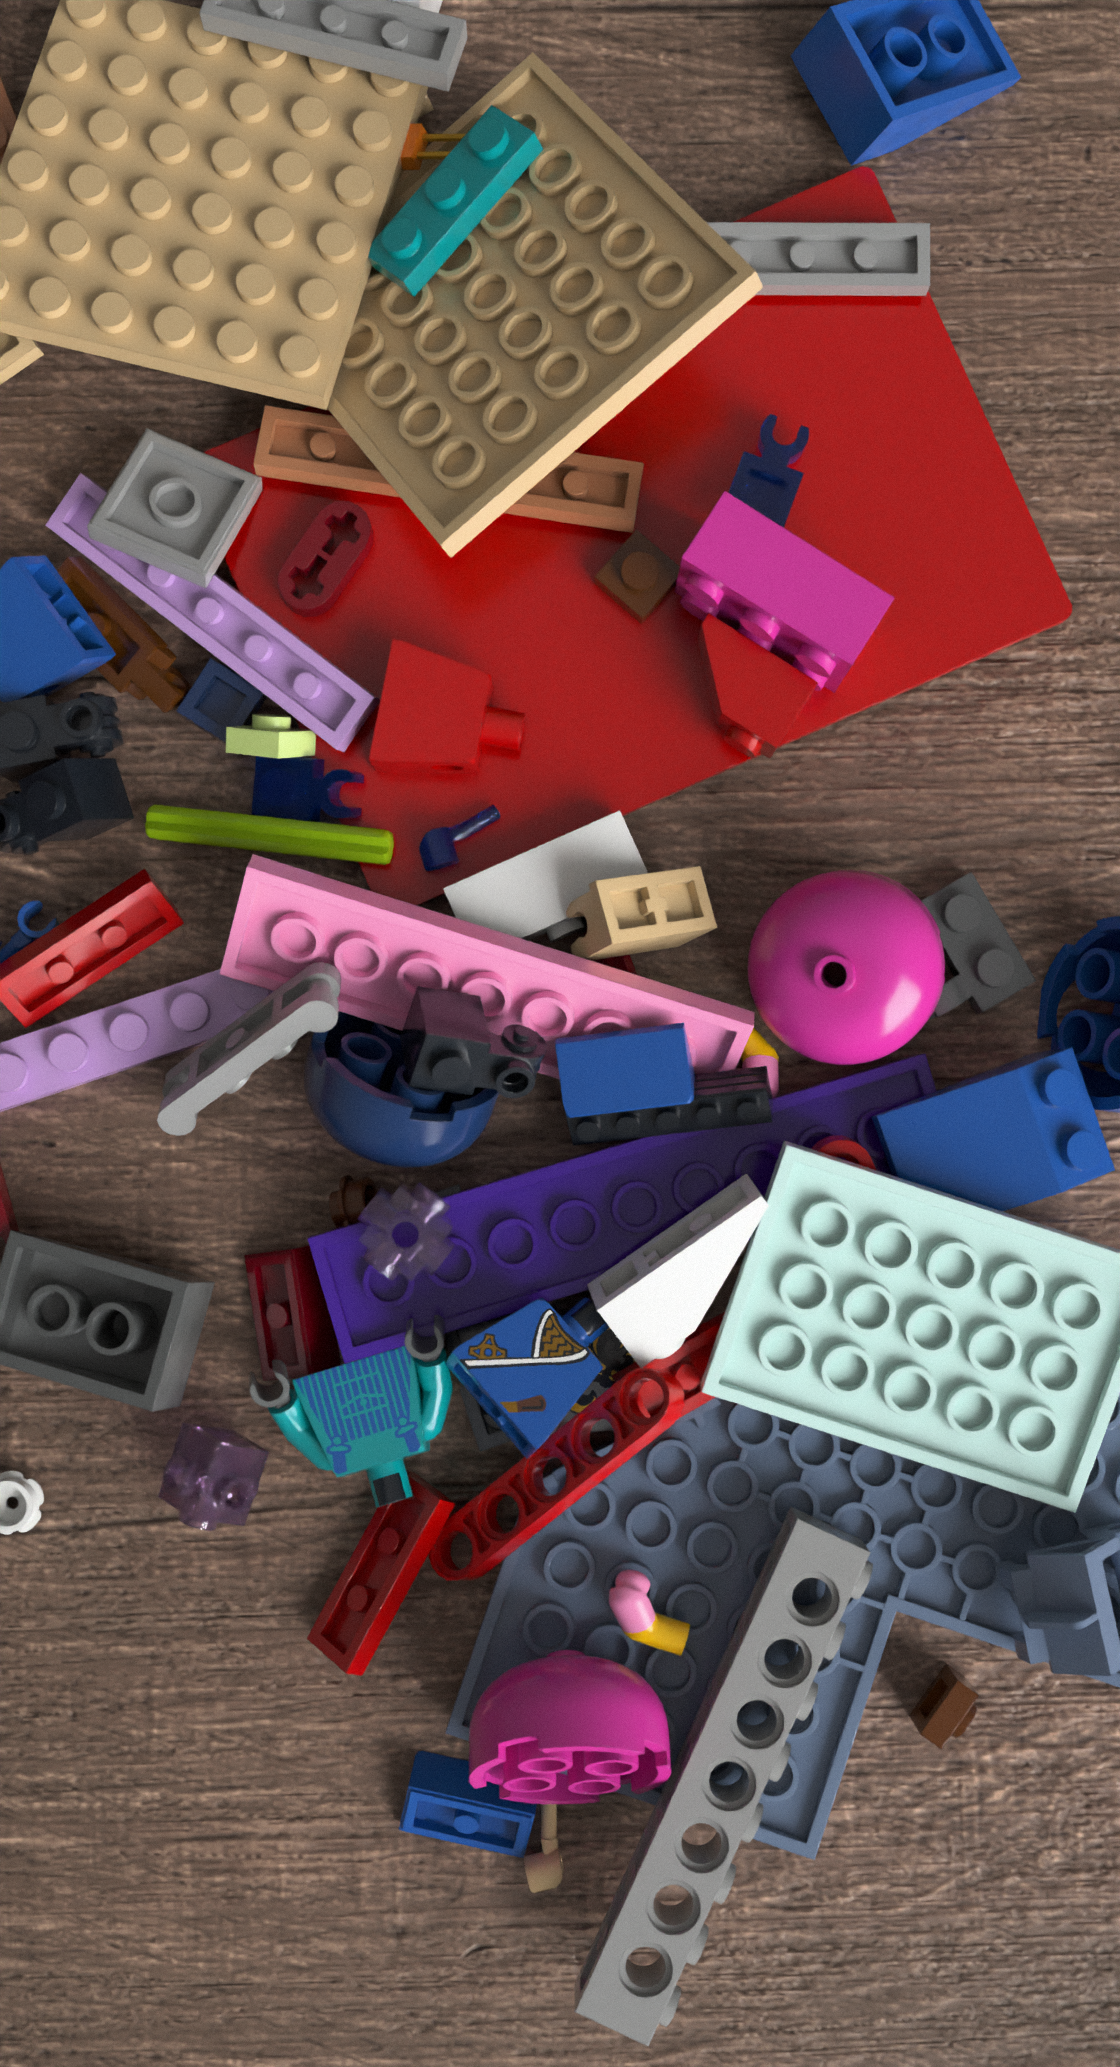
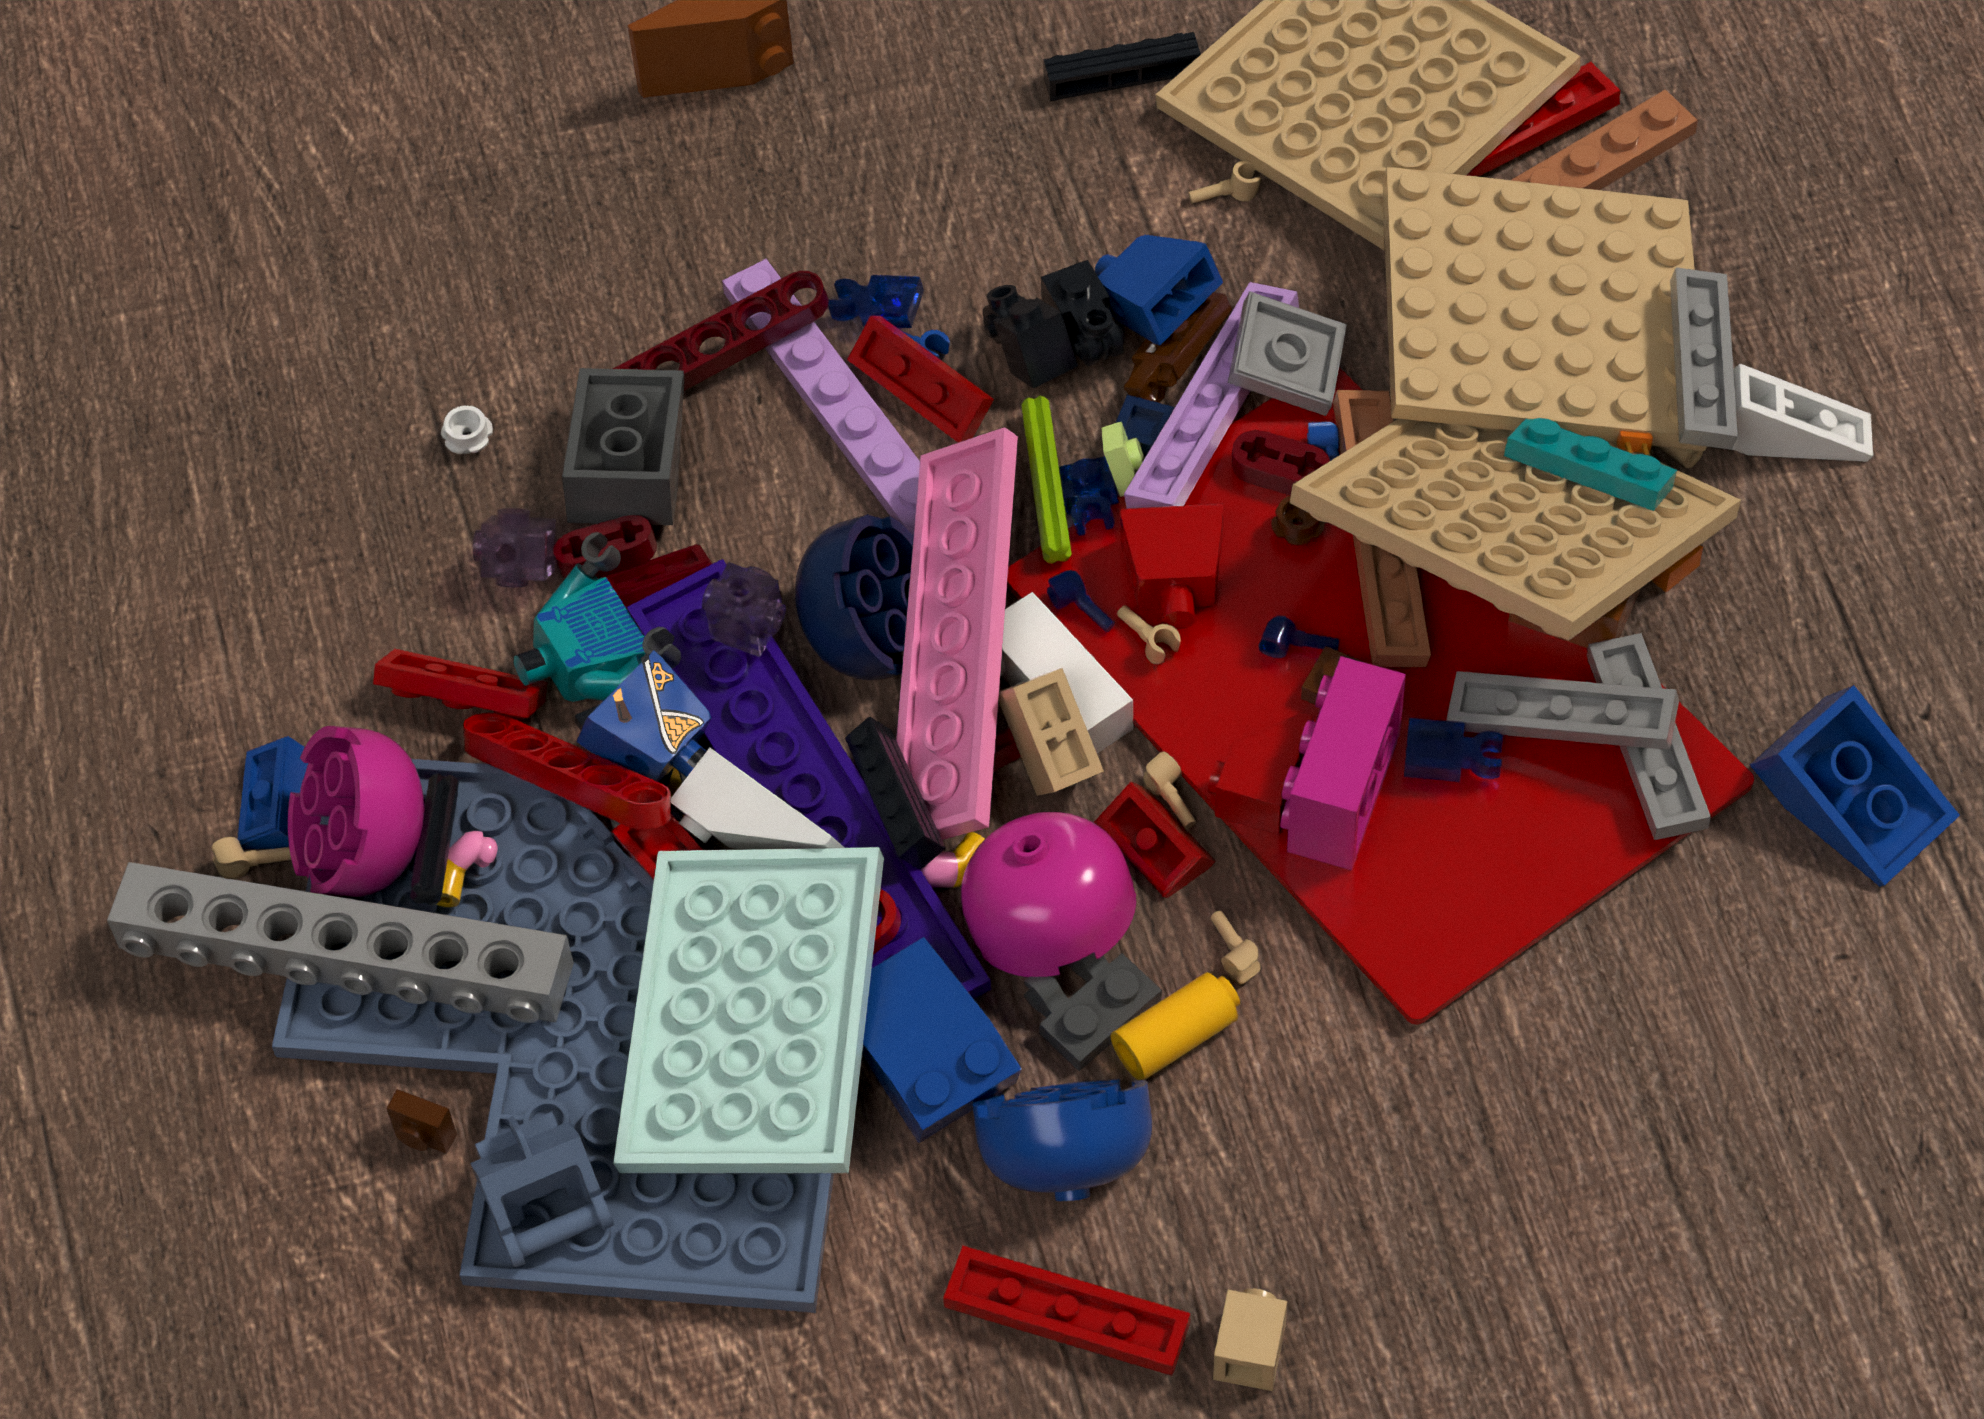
camera: 80 degrees right, 30 degrees down
(215, 1368) = (617, 532): none -> dark red beam
(262, 1033) = (879, 492): light grey plate -> none
(306, 497) = (1324, 436): none -> blue hand
(409, 545) = (1295, 534): none -> reddish brown plate
(453, 1051) = (899, 608): black brick -> none
(520, 770) = (1151, 635): none -> tan hand
(563, 625) = (1283, 632): none -> clear blue hand
(618, 1644) = (434, 839): none -> black axle
(625, 1070) = (915, 745): blue slope -> none
(697, 805) = (1158, 779): none -> tan hand
(763, 336) = (1564, 710): none -> light grey plate
(773, 831) = (1154, 840): none -> red slope
(950, 775) = (1241, 961): none -> tan hand
(1021, 866) = (1176, 1025): none -> yellow brick

